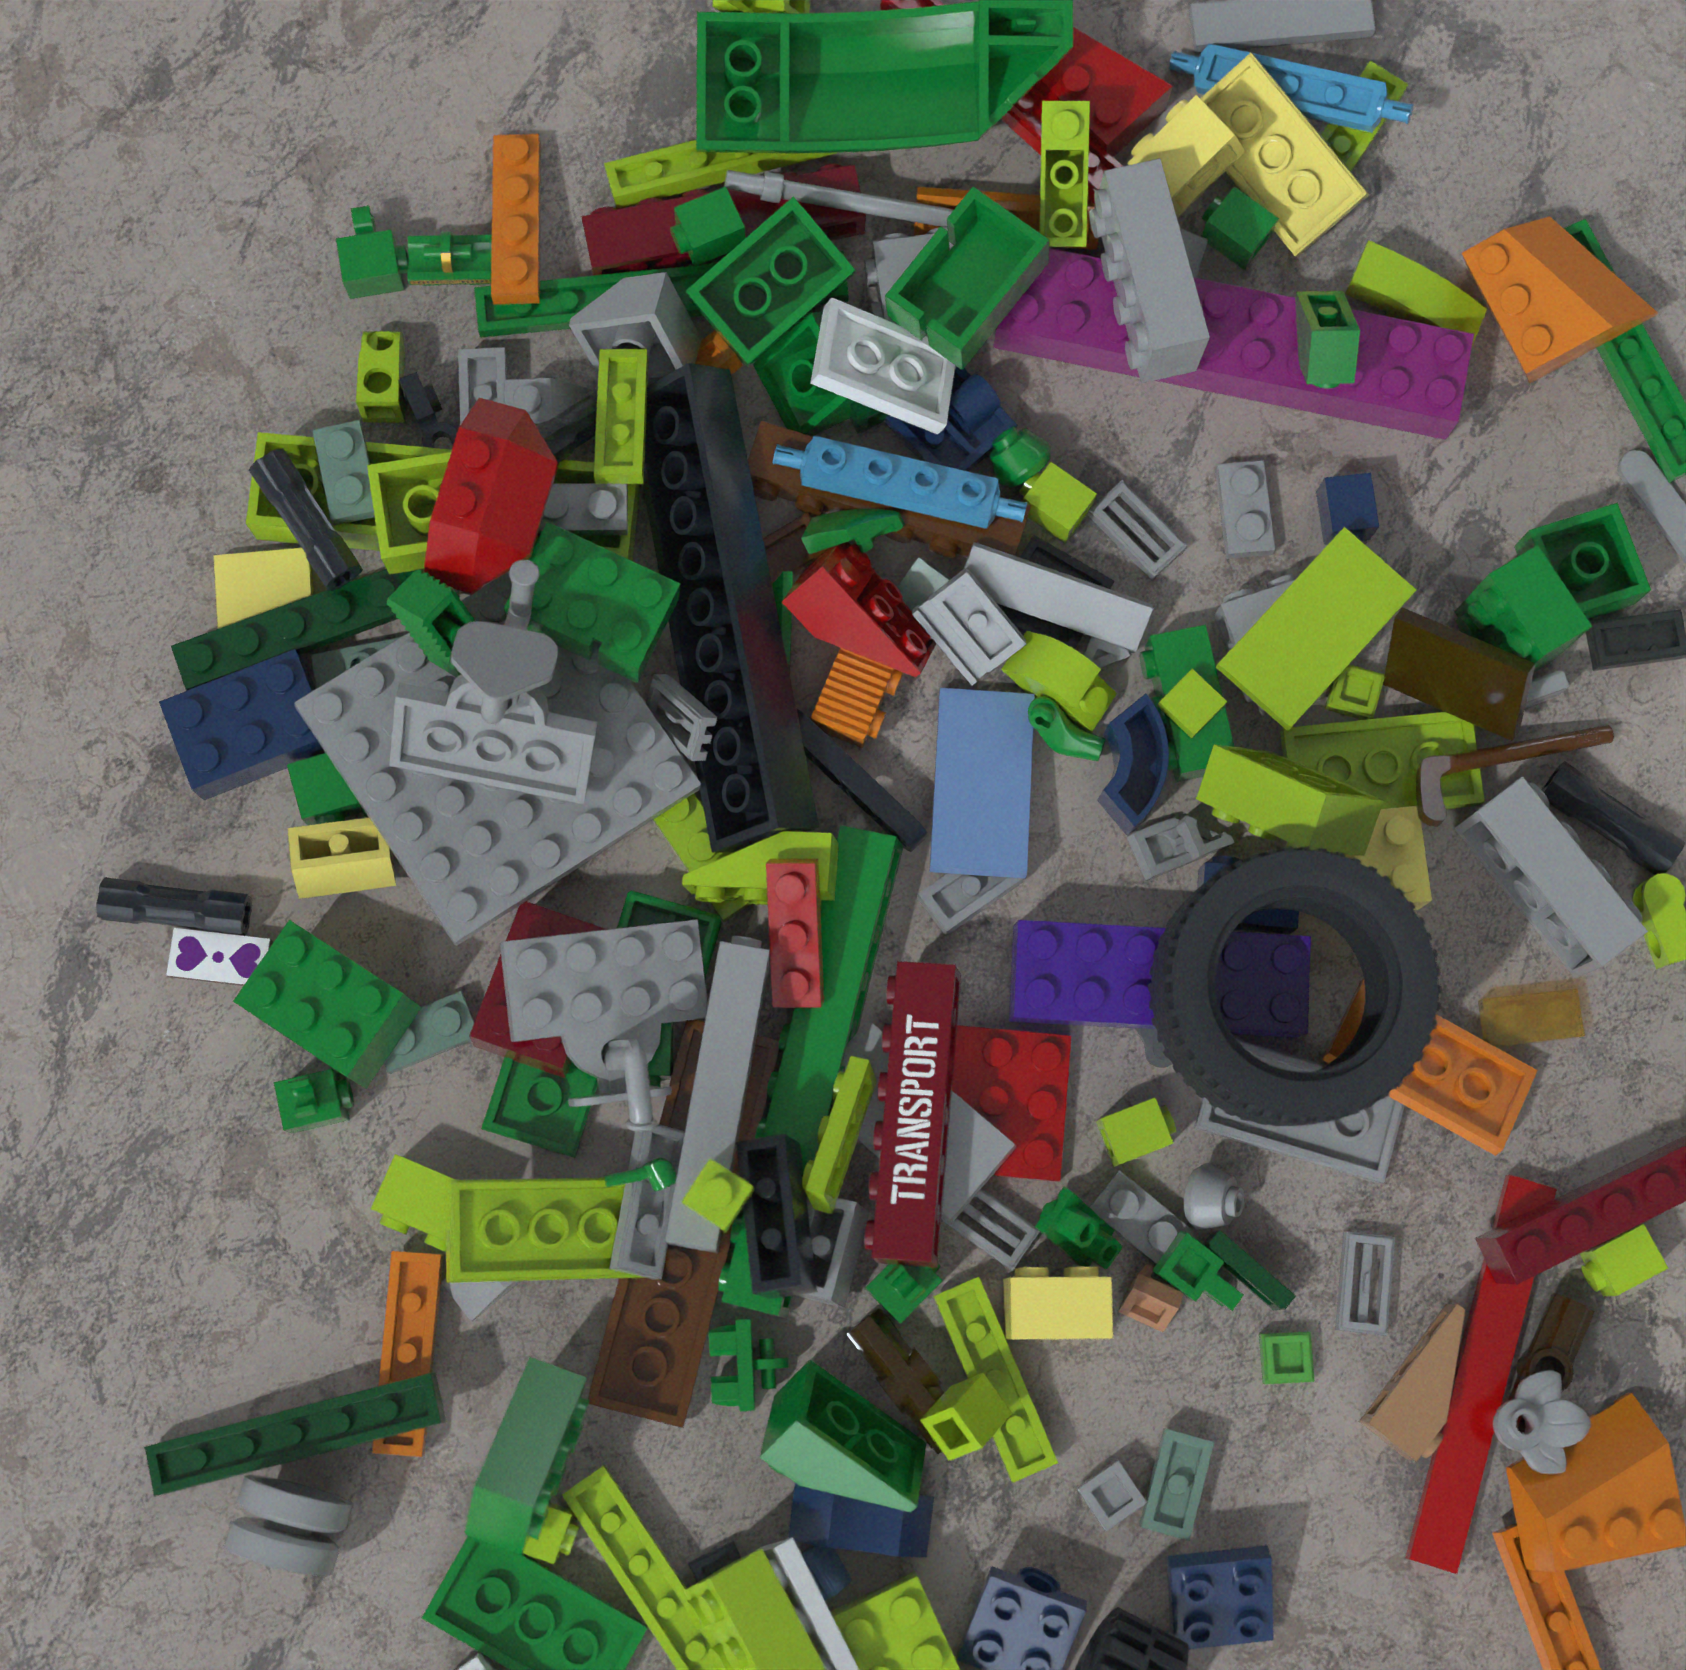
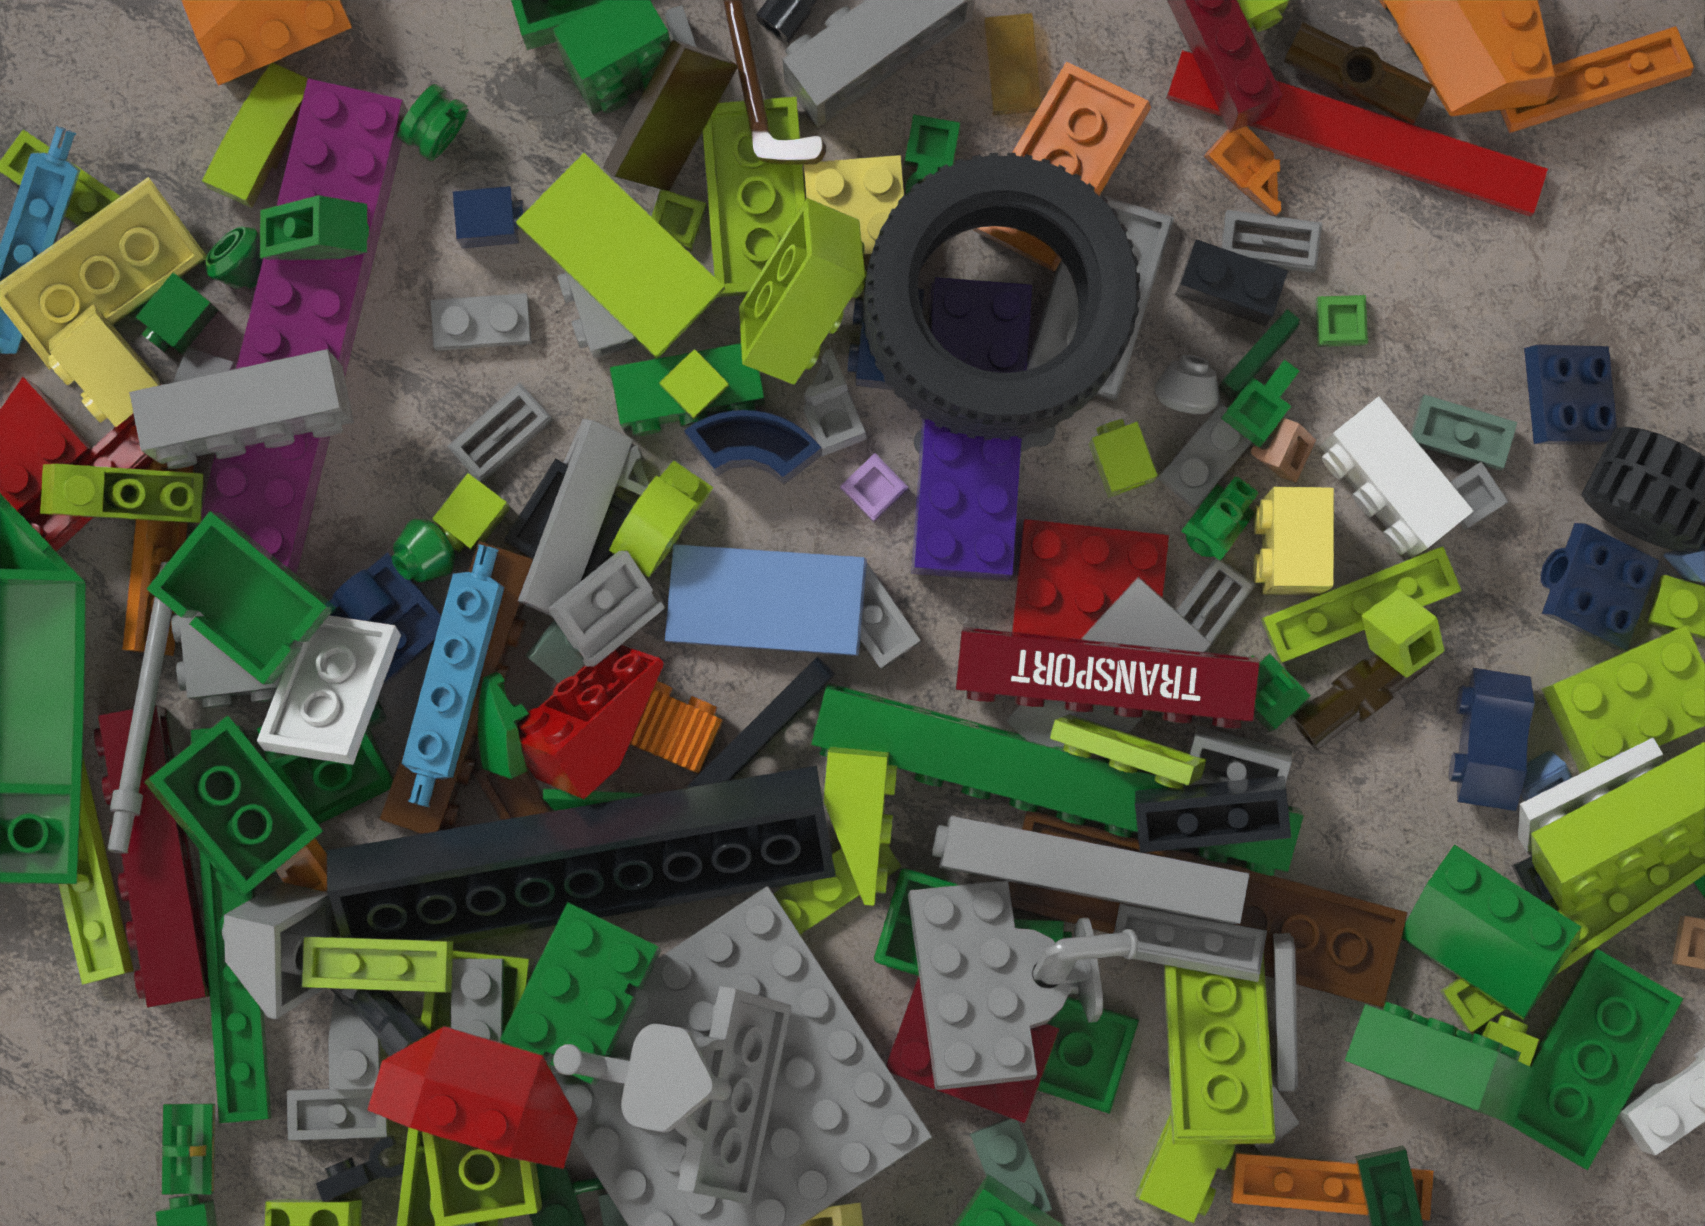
camera: 85 degrees left, 5 degrees up
(431, 615) = (604, 1155): green brick -> none
(516, 219) = (142, 1078): orange plate -> none
(580, 1300) = (1285, 1012): none -> light grey tile
(658, 1171) = (1162, 933): green hand -> none
(662, 1512) = (1490, 932): none -> green slope
(682, 709) = (688, 904): light grey tile -> none
(707, 226) = (169, 871): green brick -> none
(717, 1195) = (1200, 869): lime brick -> none
(739, 1389) = (1369, 856): green hips -> none
(795, 932) = (927, 791): red plate -> none
(841, 1442) = (1425, 755): green slope -> none
(1061, 733) = (715, 518): green arm -> none
(1097, 888) = (874, 487): none -> lavender tile
(1125, 1407) = (1394, 479): none -> white brick
(1293, 274) = (236, 258): none -> green cone
(1320, 1240) = (1231, 282): none -> black brick
(1419, 1393) = (1380, 196): medium nougat slope -> none
(1438, 455) = (433, 122): none -> green wheel
(1441, 1259) = (1248, 166): none -> orange slope
(1450, 936) = (930, 146): none -> green plate
(1548, 1422) = (1411, 73): light grey plate -> none

